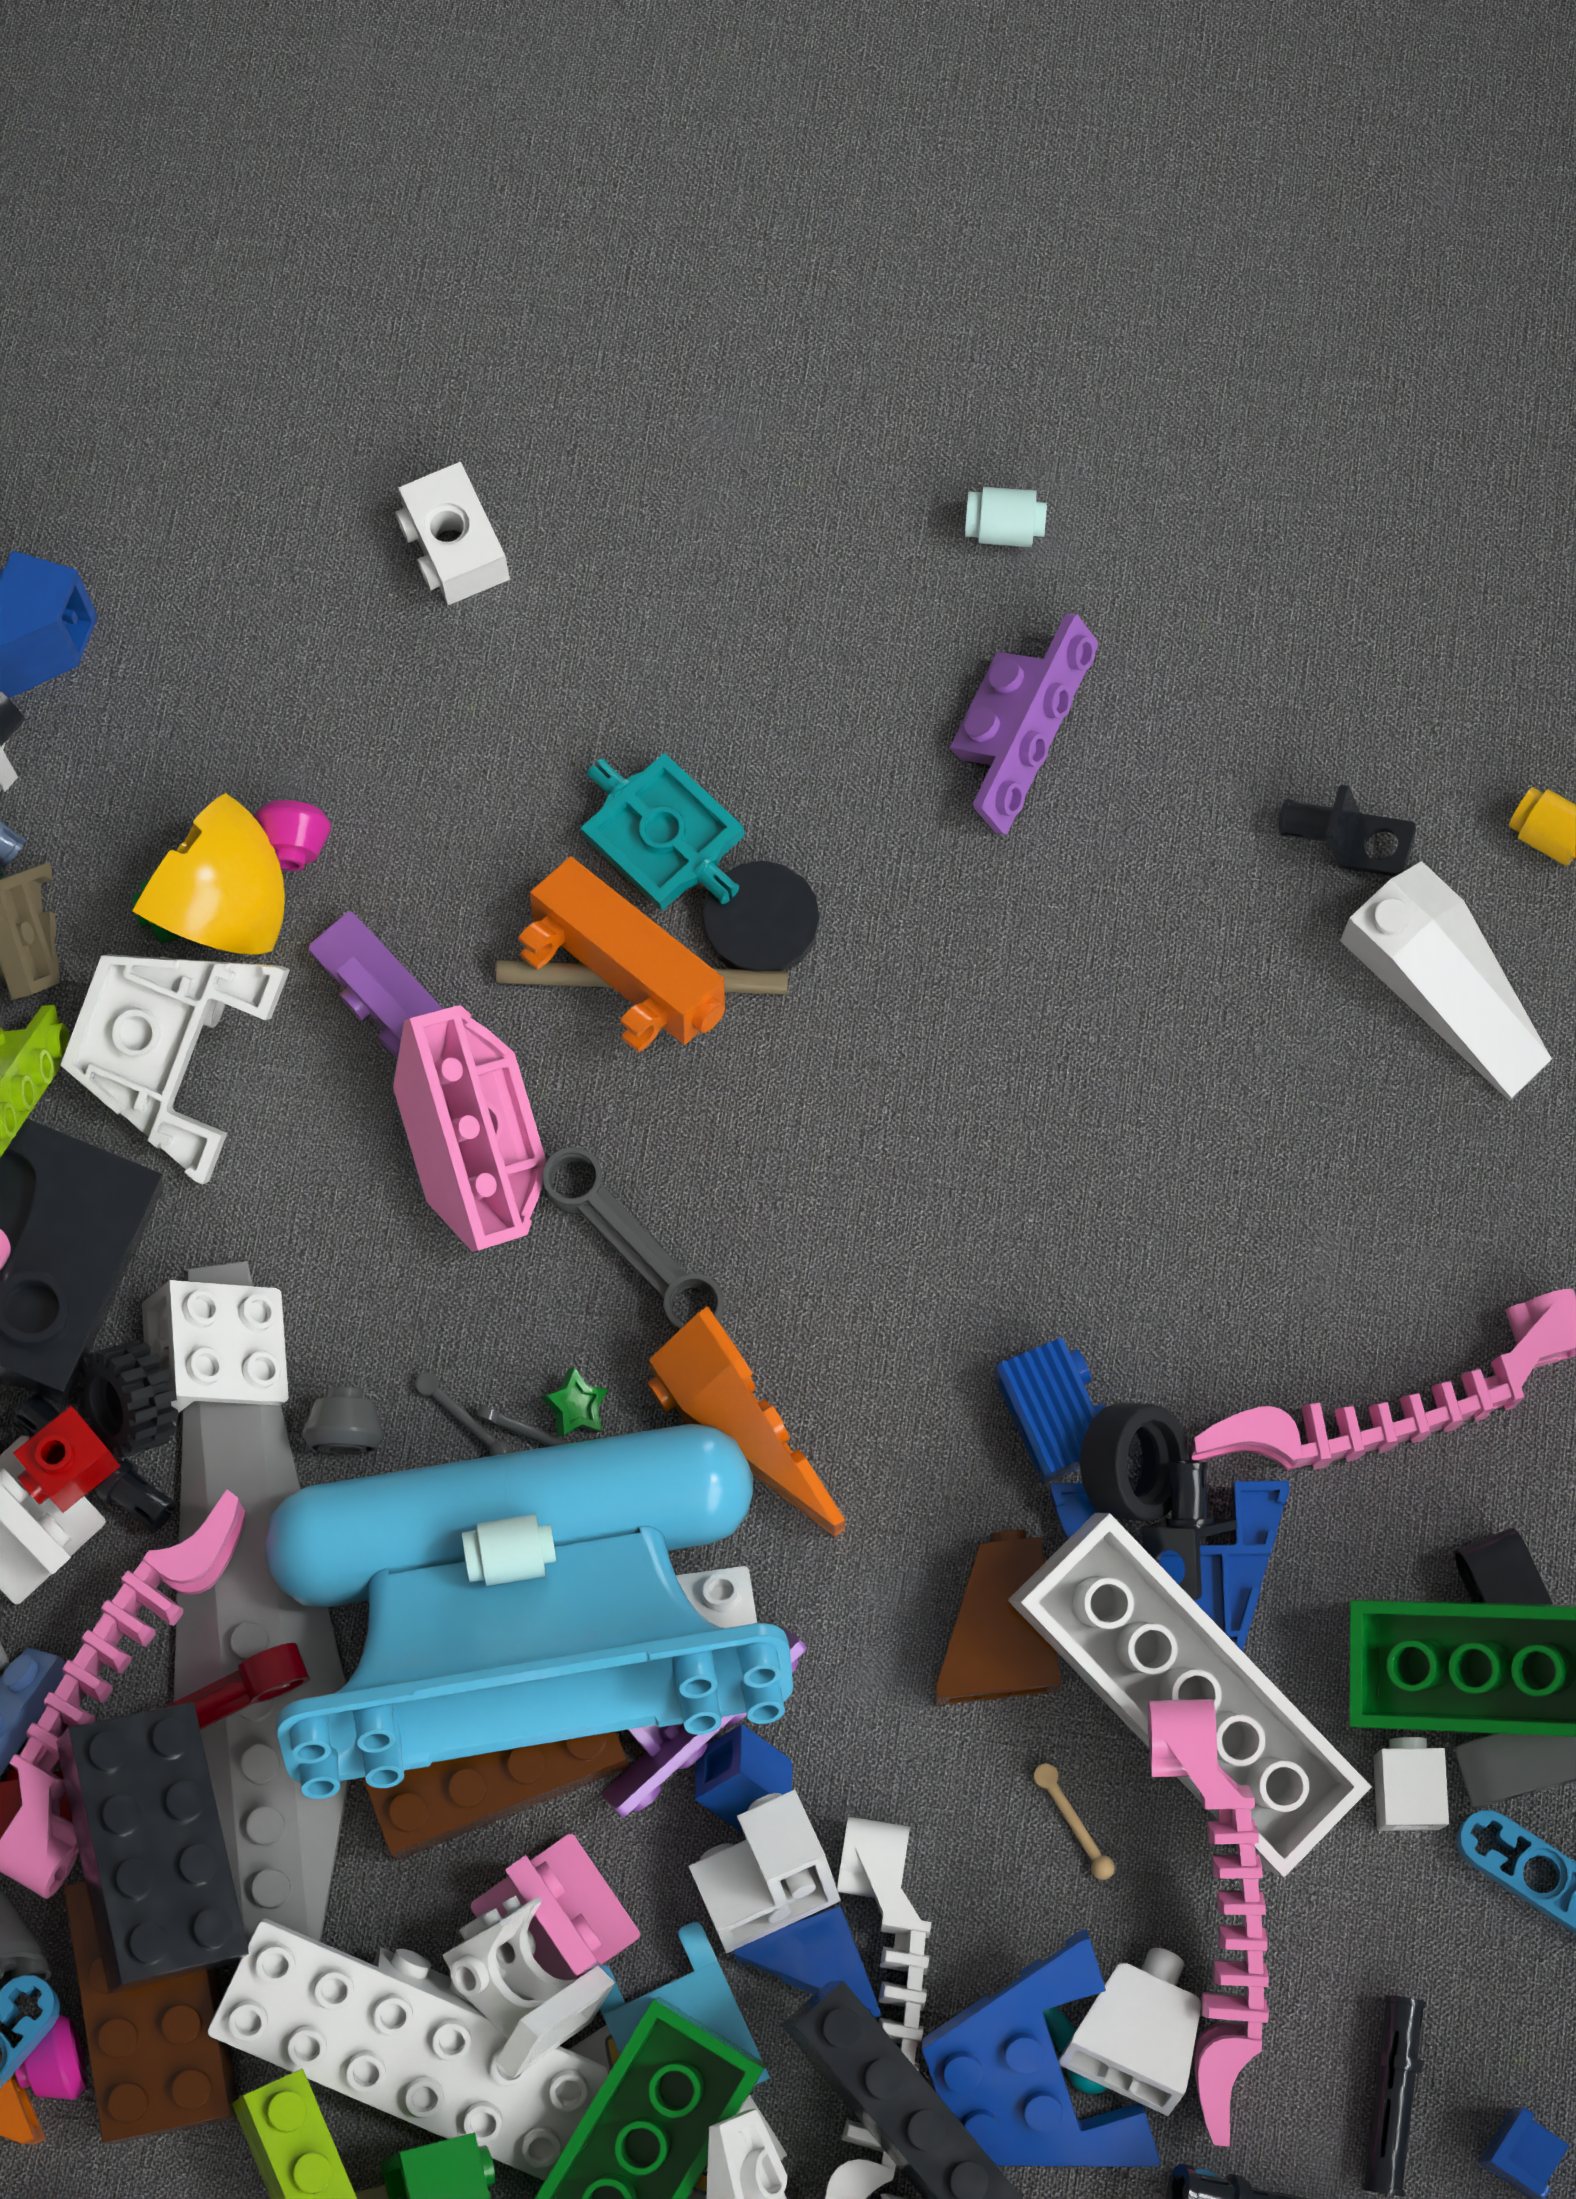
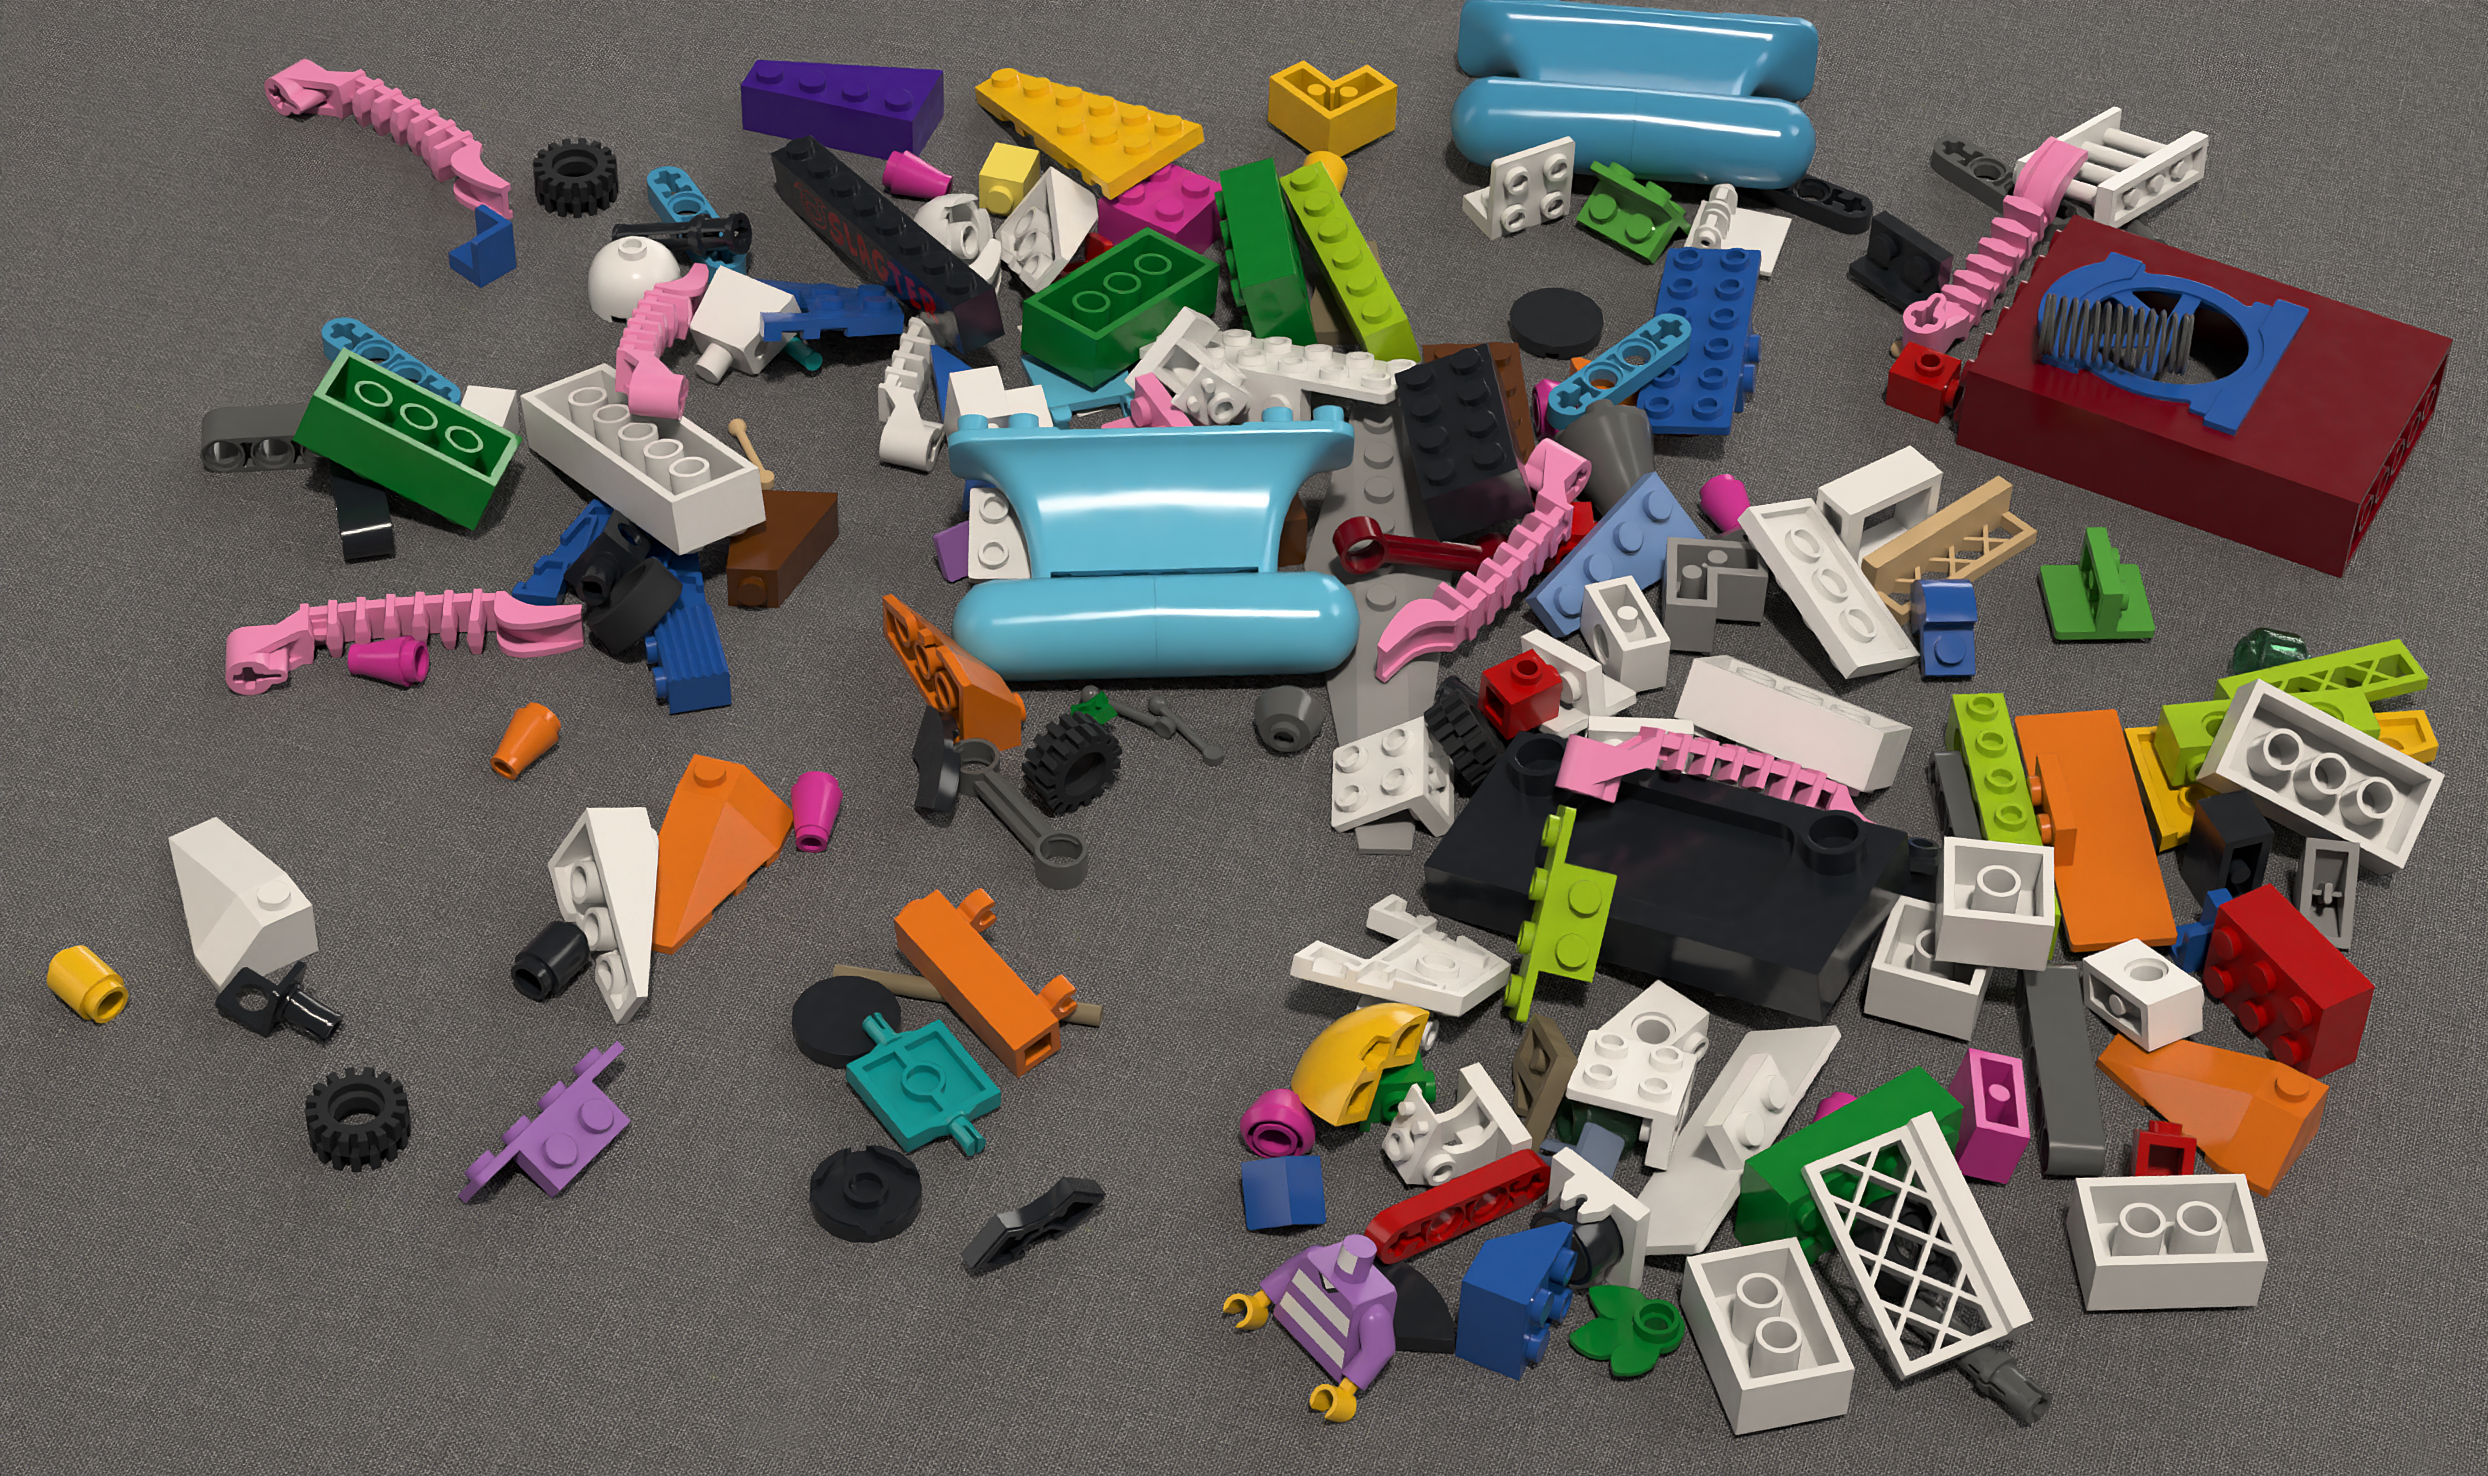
camera: 175 degrees left, 30 degrees down
(75, 858) = (1478, 1123): none -> white tile
(98, 752) = (1458, 1205): none -> red beam
(154, 661) = (1420, 1314): none -> black tile
(215, 601) = (1336, 1311): none -> medium lavender torso
(278, 754) = (1283, 1192): none -> blue panel
(371, 979) = (1198, 983): medium lavender bracket -> none
(449, 503) = (1081, 1350): white brick -> none
(469, 1127) = (1142, 870): bright pink wedge -> none
(508, 1550) = (1158, 545): light aqua brick -> none
(519, 672) = (1052, 1213): none -> black tile
(577, 1289) = (1071, 762): none -> black tyre
(697, 706) = (865, 1194): none -> black tile
(729, 1254) = (937, 761): none -> black tile
(857, 1202) = (814, 809): none -> dark pink cone
(957, 1130) = (710, 842): none -> orange wedge
(1005, 516) = (514, 1292): light aqua brick -> none
(1038, 1023) = (608, 887): none -> white wedge
(1086, 933) = (550, 959): none -> black brick
(1205, 1257) = (527, 737): none -> orange cone
(1228, 671) = (358, 1096): none -> black tyre
(1304, 2126) = (625, 272): none -> white cylinder
(1394, 2094) = (544, 319): black pin -> none
(1395, 1357) = (392, 660): none -> dark pink cone

